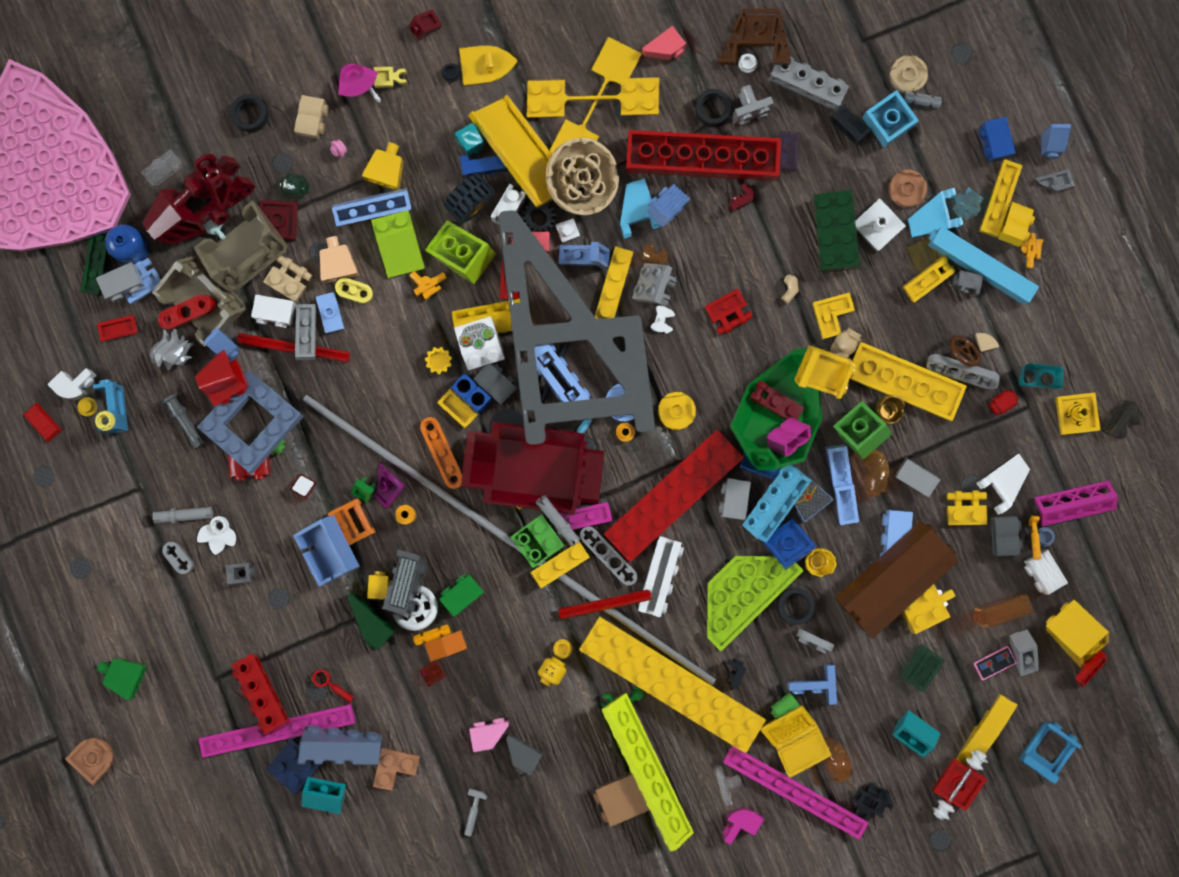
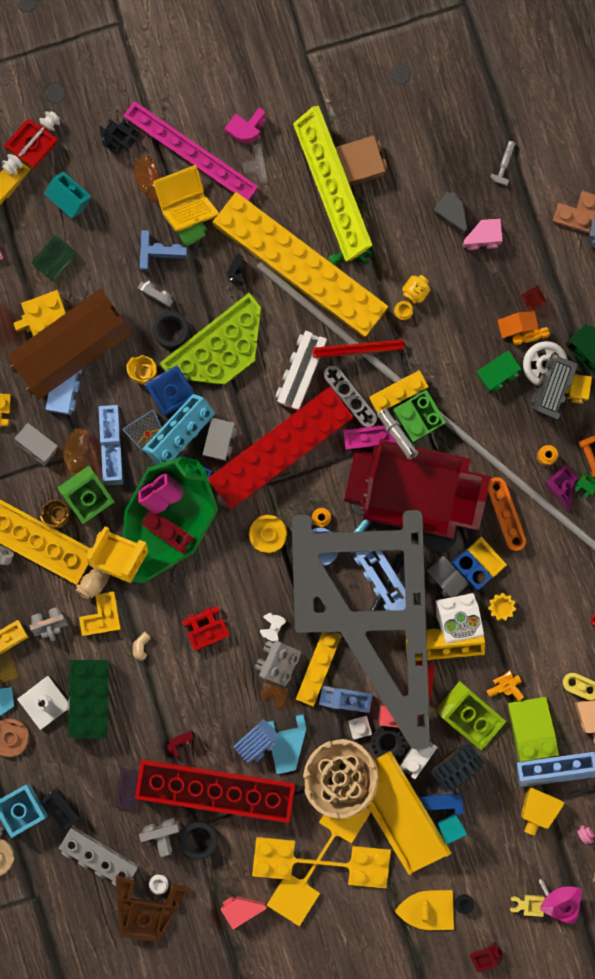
camera: 170 degrees left, 0 degrees up
(882, 297) = (50, 626): none -> light grey hips

